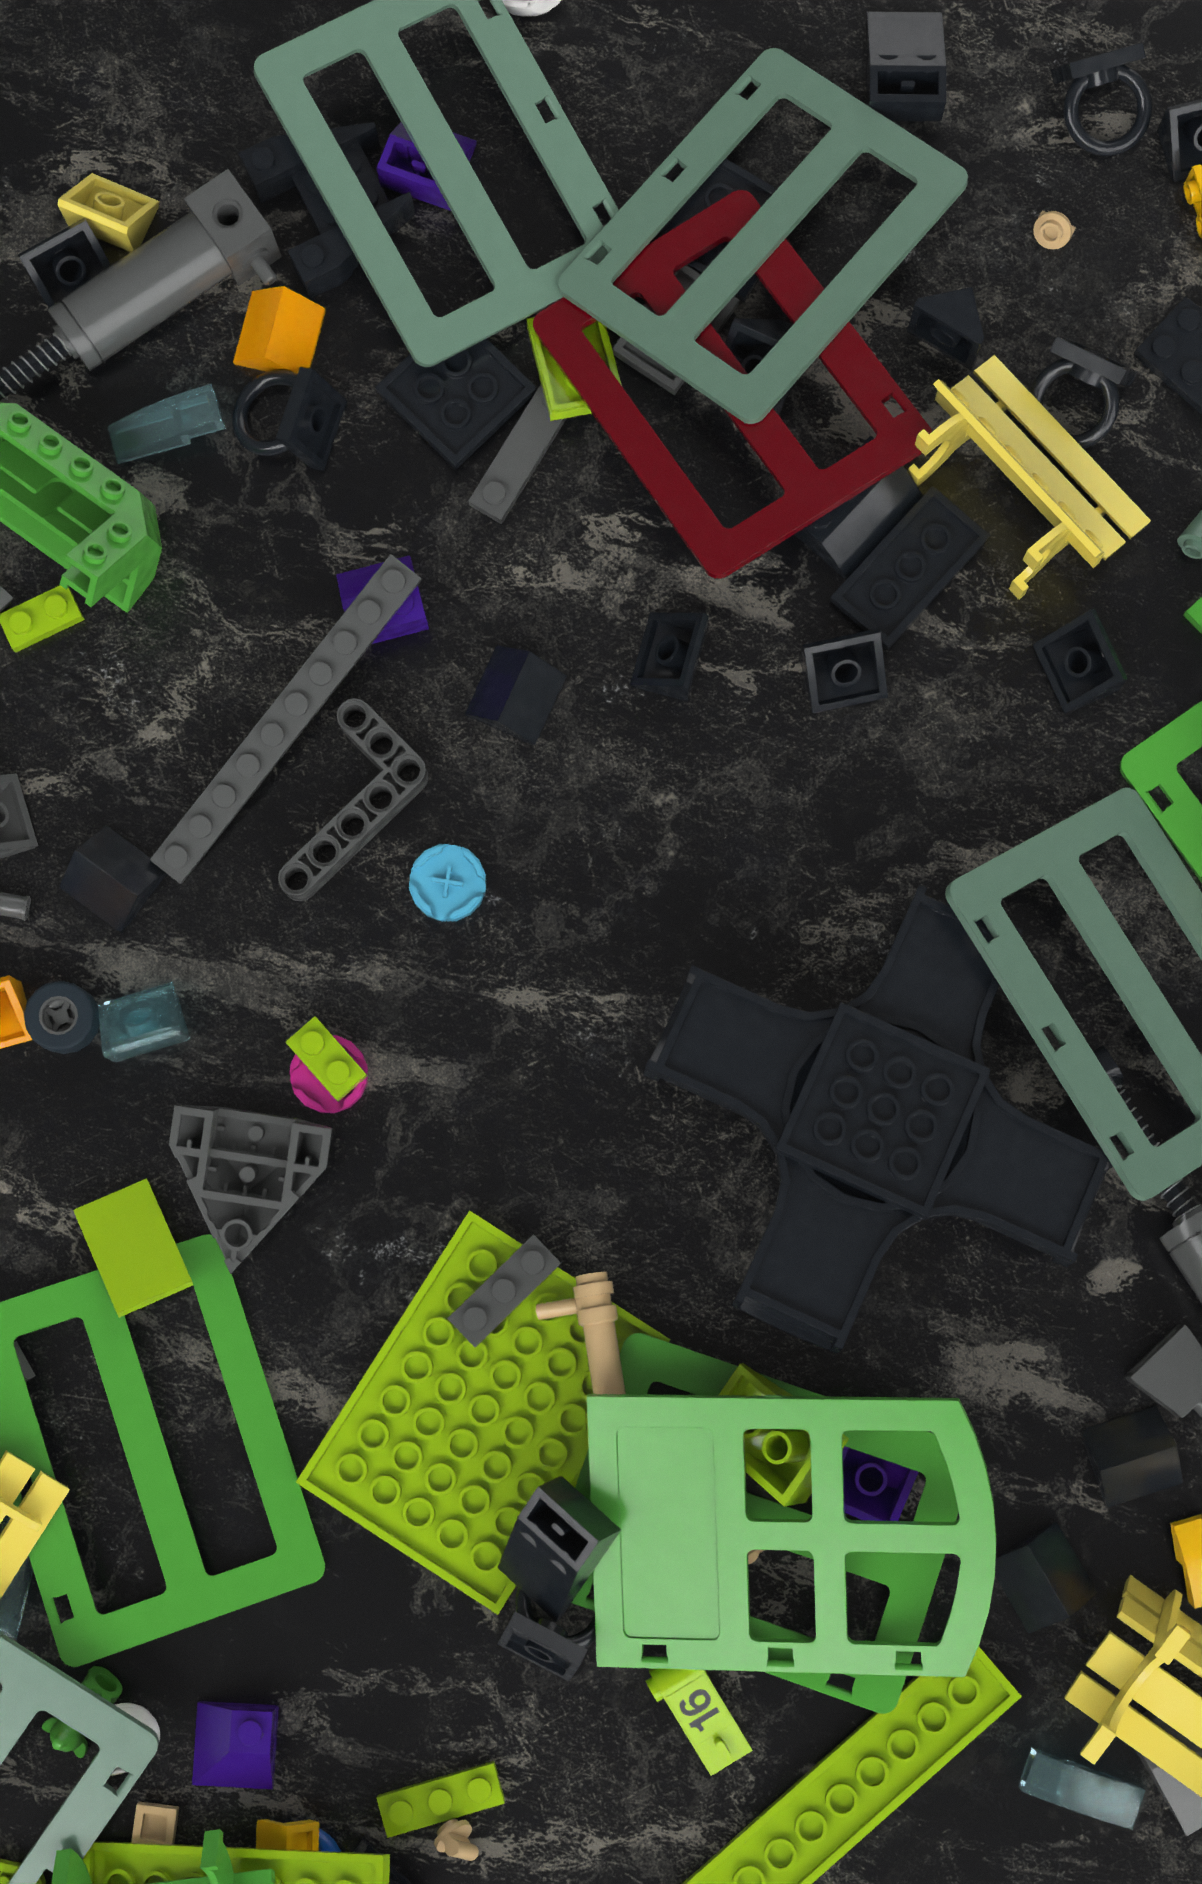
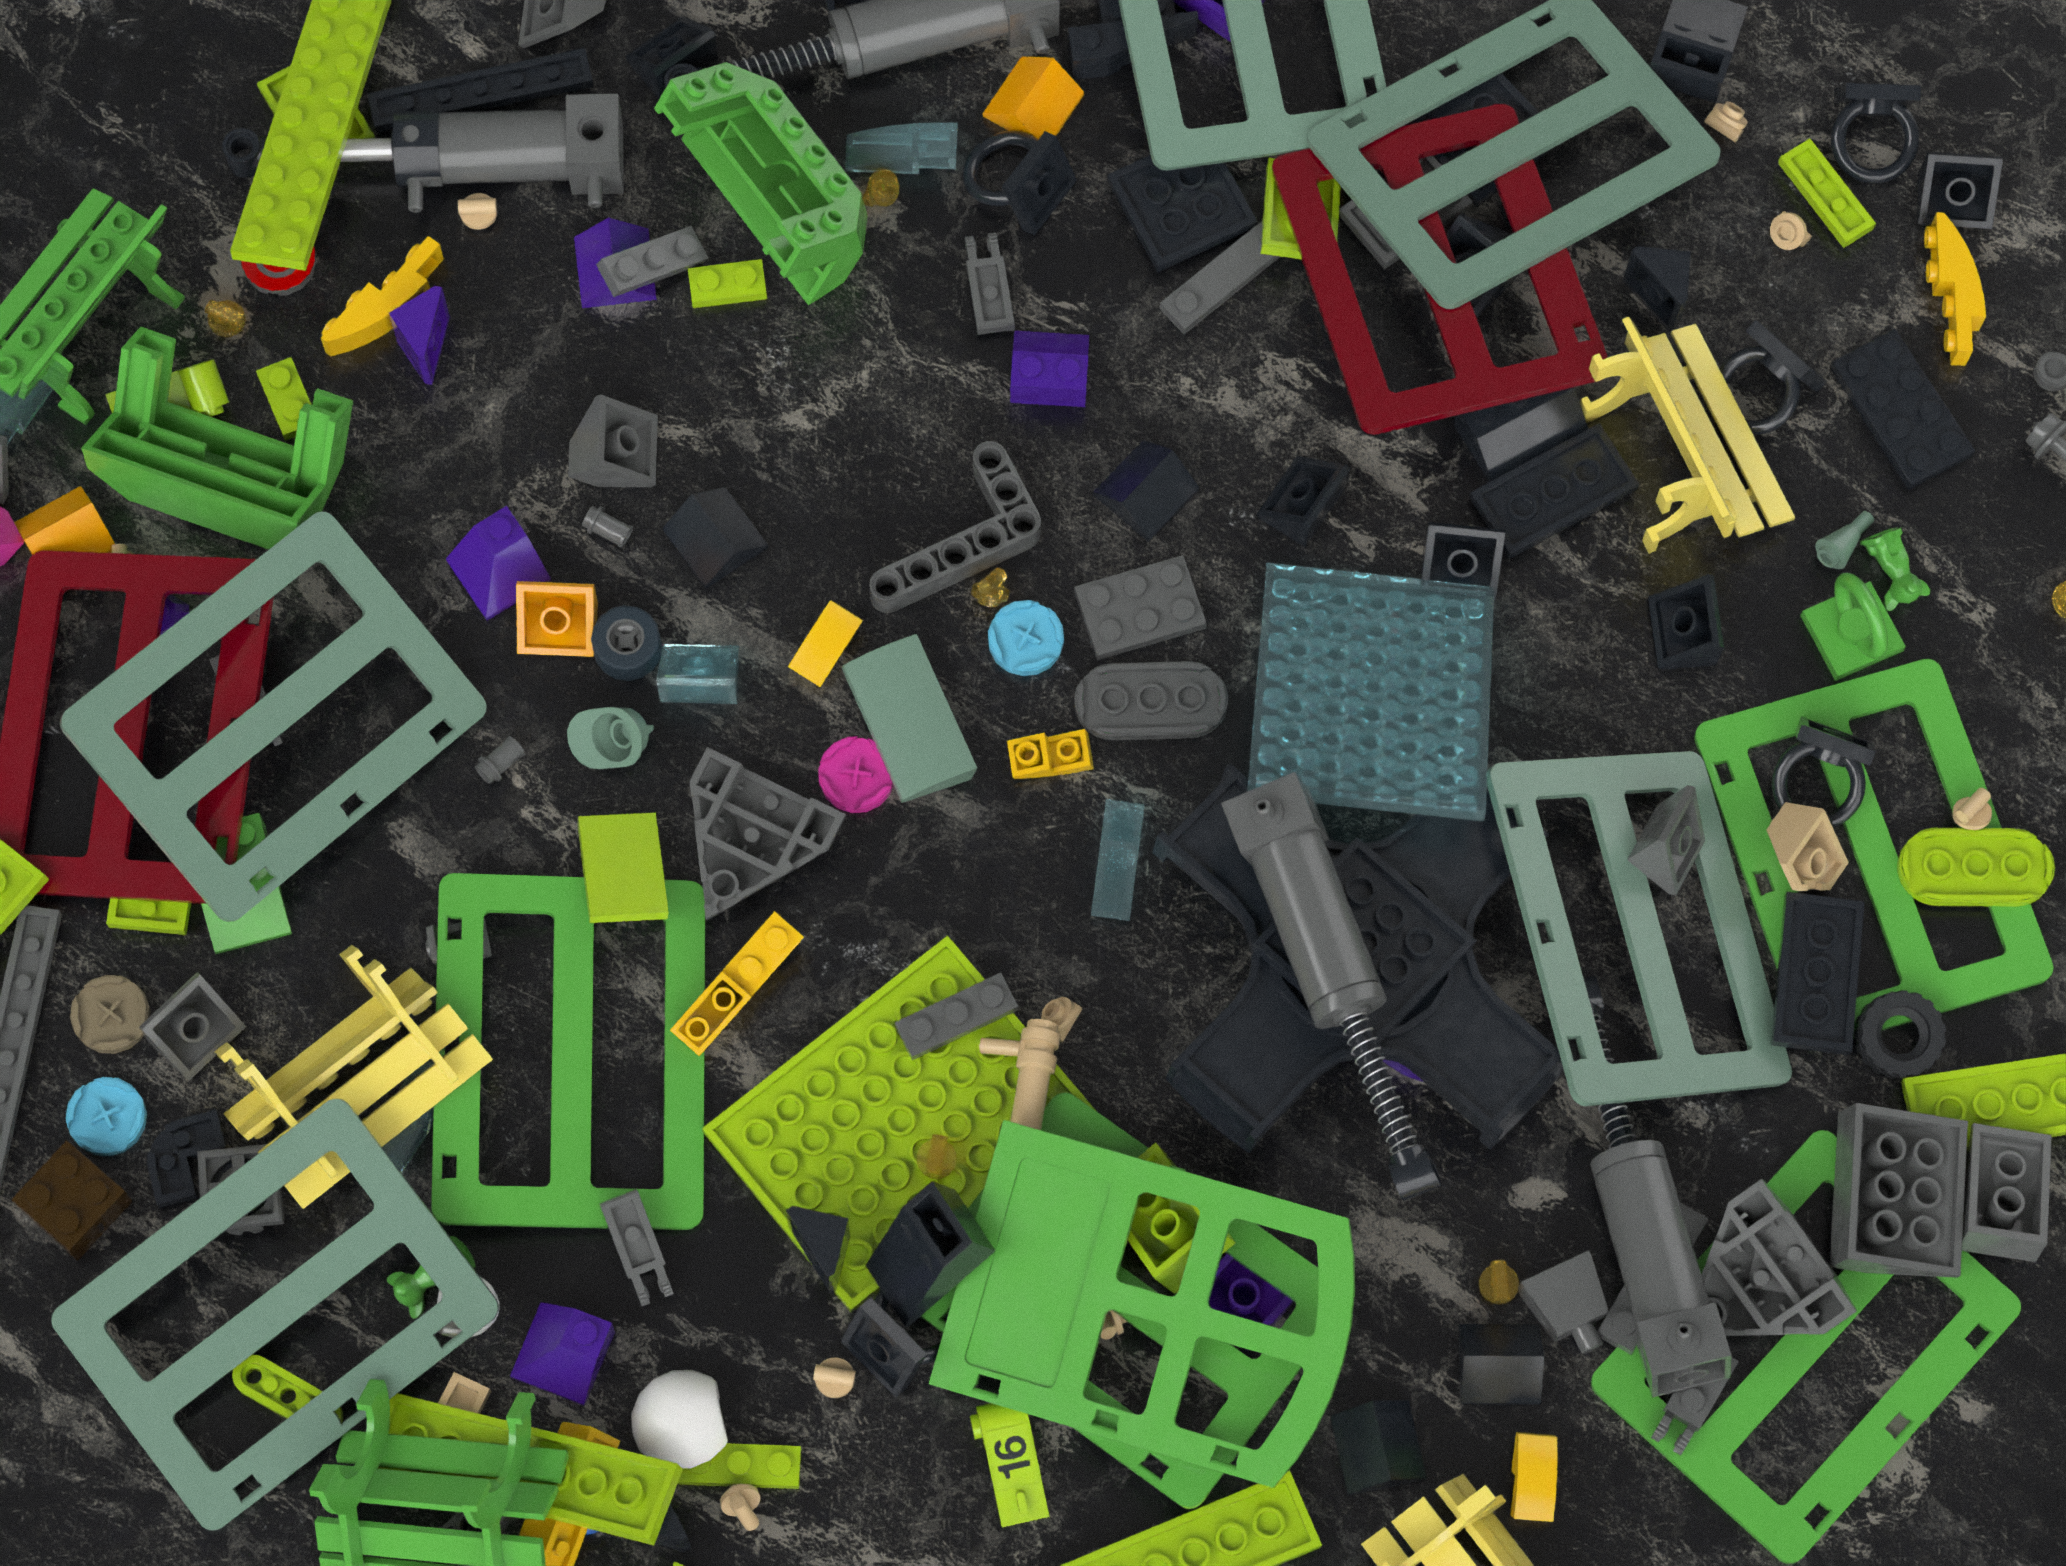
camera: 10 degrees right, 10 degrees down
(77, 1119) = (608, 737): none -> sand green piece
(159, 472) = (881, 189): none -> clear yellow plate
(255, 954) = (825, 643): none -> yellow slope
(269, 1619) = (635, 1242): none -> dark grey hinge
(281, 1327) = (736, 983): none -> yellow slope
(286, 719) = (925, 440): dark grey plate -> none
(297, 540) = (989, 288): none -> dark grey hinge
(326, 1058) = (860, 757): lime plate -> none
(361, 1004) = (909, 719): none -> sand green slope
(369, 1778) = (679, 1418): none -> white cylinder
(398, 847) = (990, 589): none -> clear yellow plate
(449, 1570) = (823, 1240): none -> black slope
(503, 1683) = (834, 1377): none -> tan plate
(509, 993) = (1050, 756): none -> yellow slope
(531, 1440) = (936, 1157): none -> clear yellow plate
(548, 815) = (1140, 607): none -> dark grey plate
(588, 906) = (1151, 700): none -> dark grey tile
(603, 1253) = (1063, 1013): none -> tan plate
(608, 1077) = (1117, 859): none -> clear light blue slope
(775, 1043) = (1286, 846): none -> dark grey piece
(805, 841) = (1374, 690): none -> clear light blue plate
(958, 135) = (1727, 120): none -> tan plate
(1077, 179) = (1826, 193): none -> lime plate
(1106, 1379) = (1498, 1283): none -> clear yellow plate
(1136, 892) = (1670, 841): none -> dark grey slope

